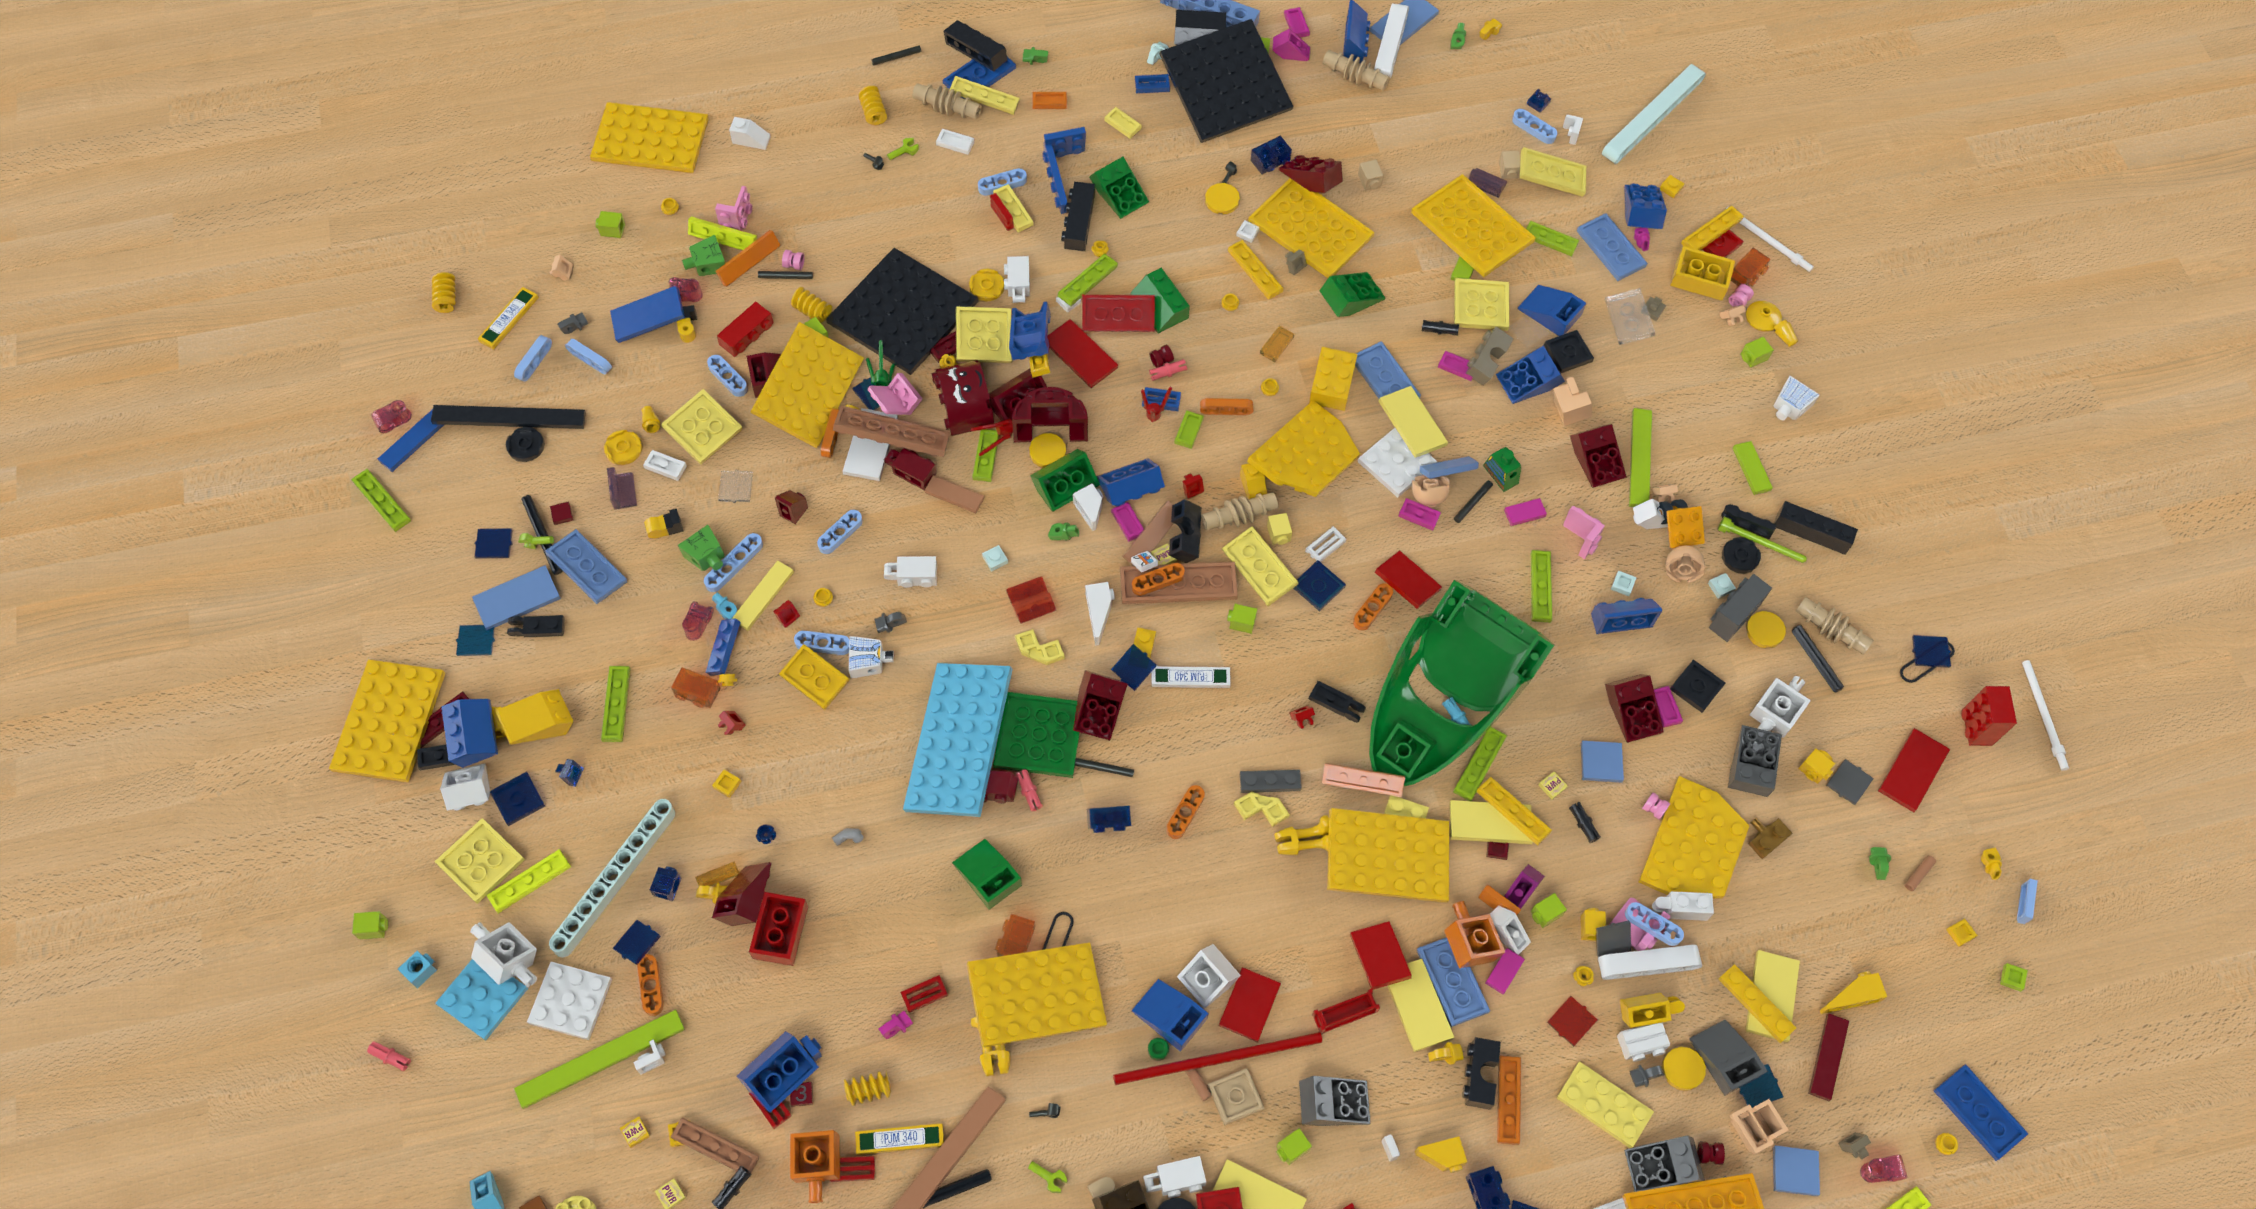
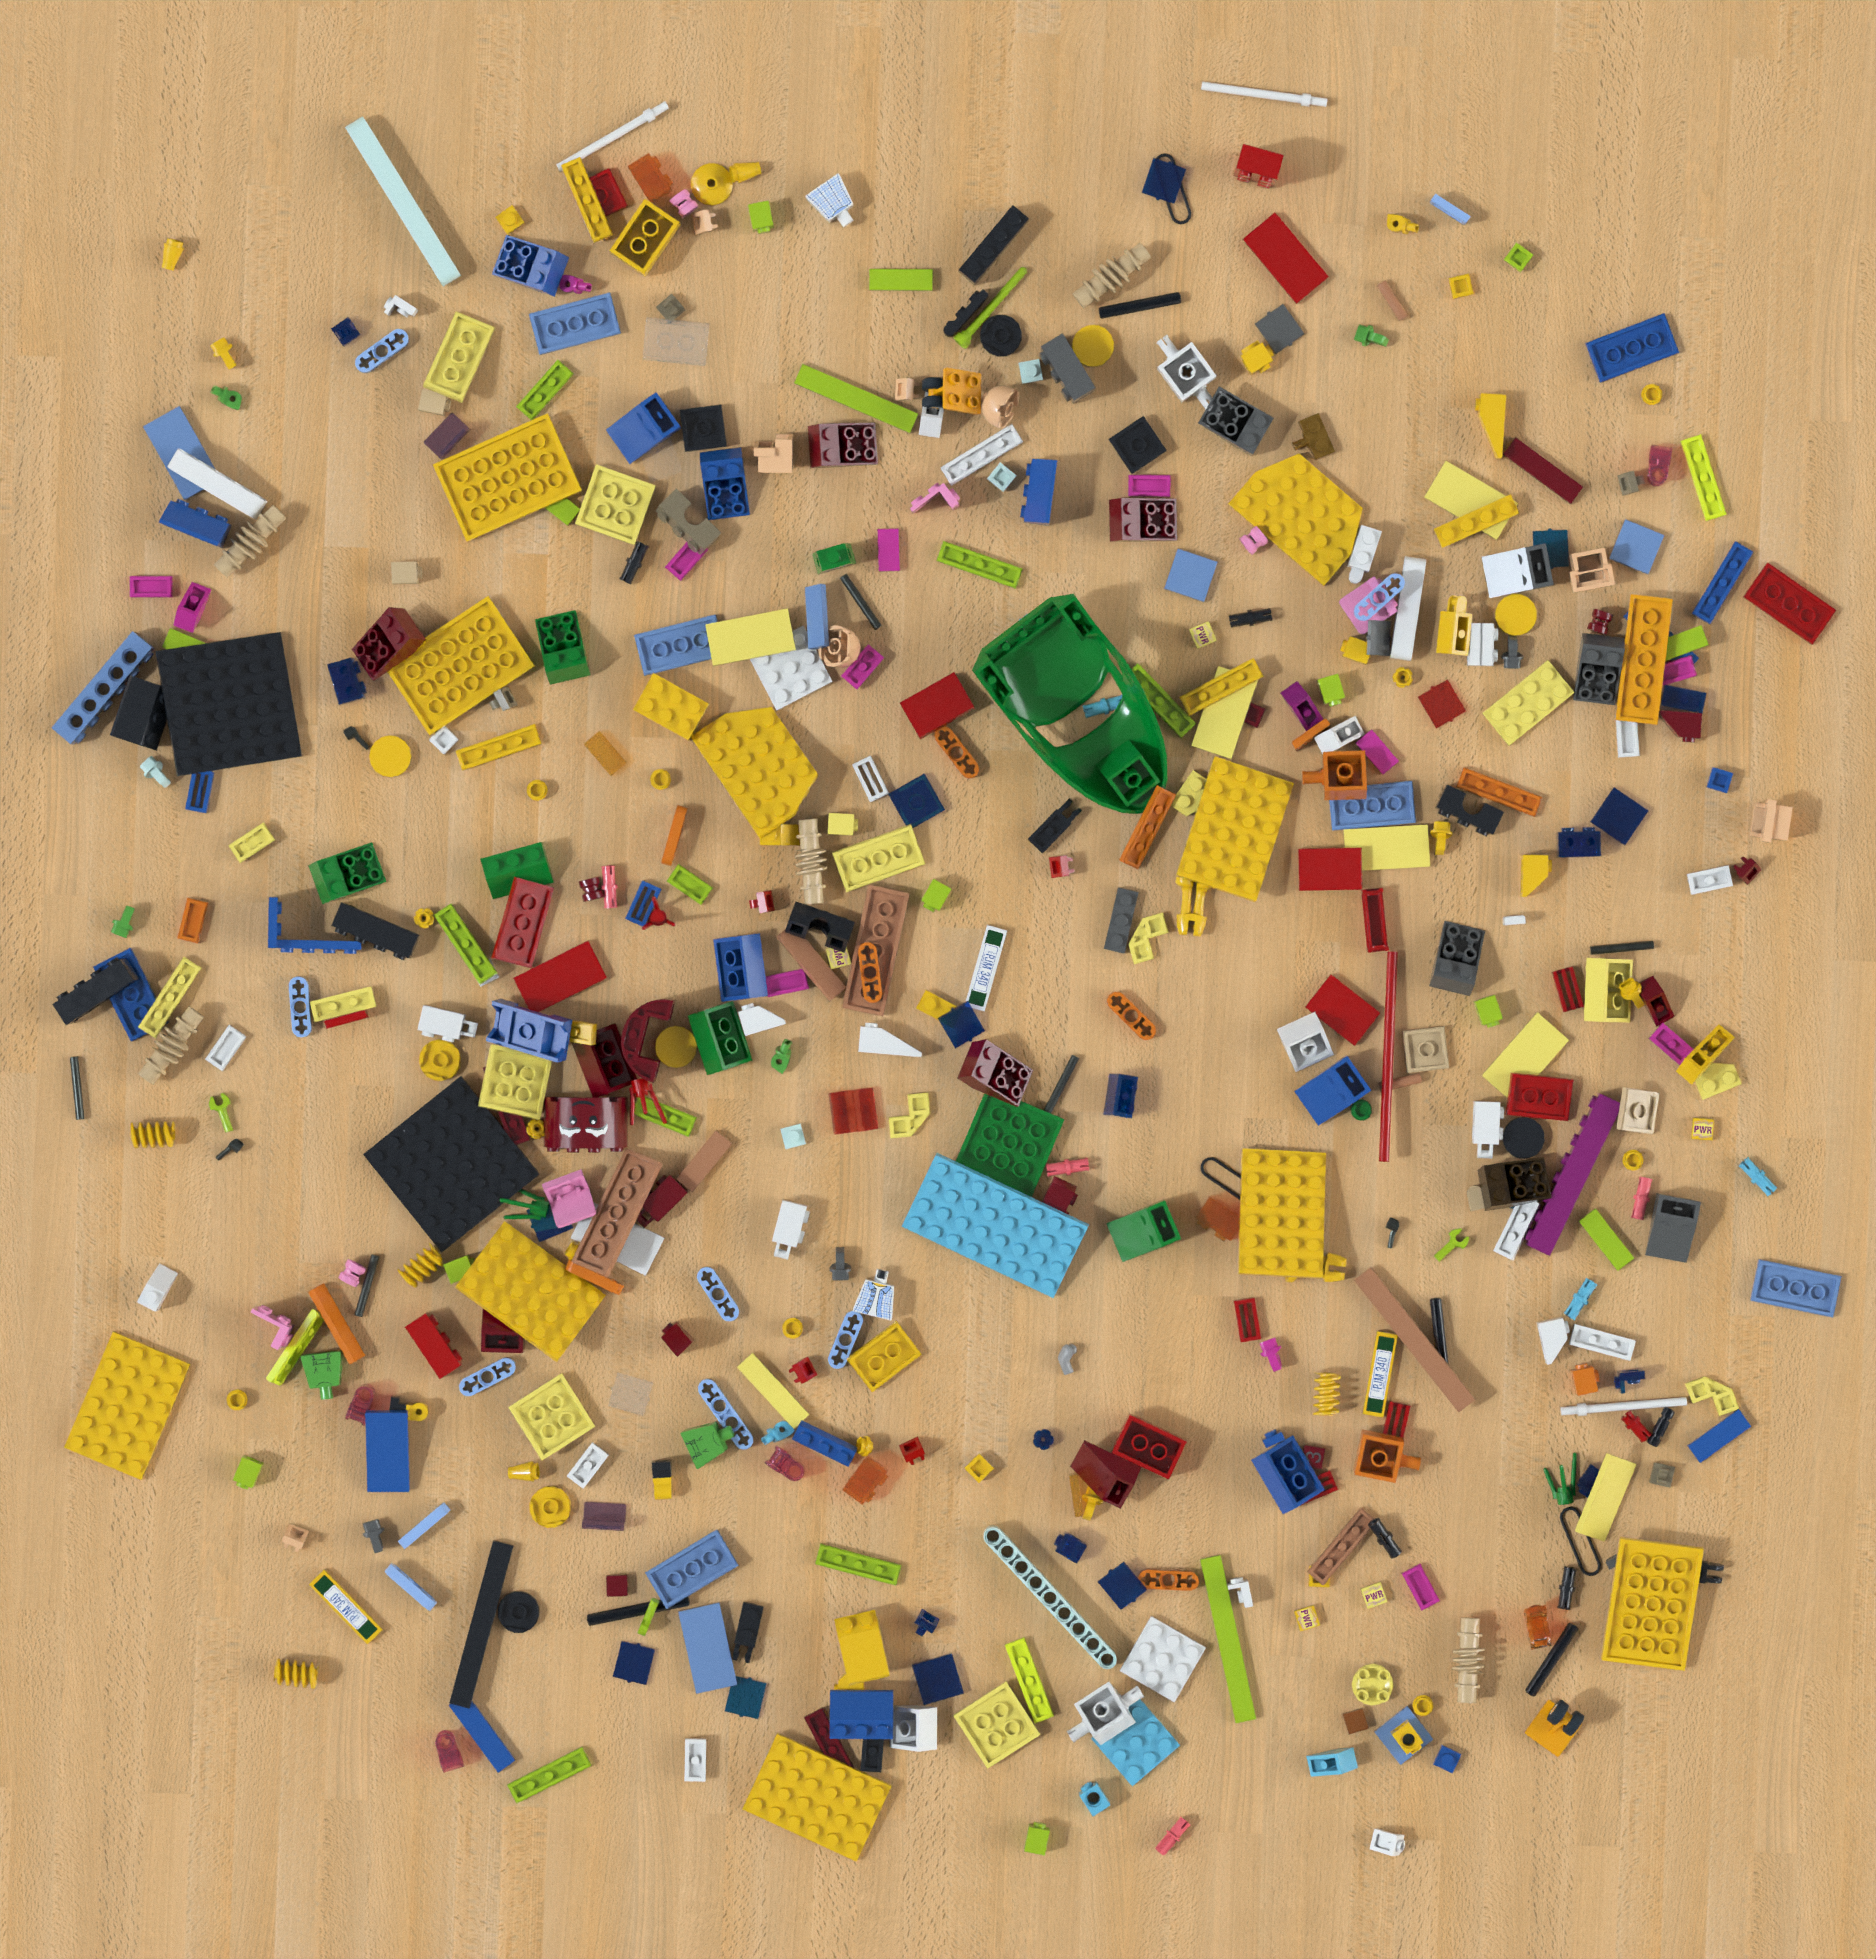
camera: 75 degrees left, 25 degrees up
(409, 610) = (695, 1759): none -> white plate
(1144, 561) = (844, 980): tile -> none
(1635, 564) = (981, 454): none -> white tile

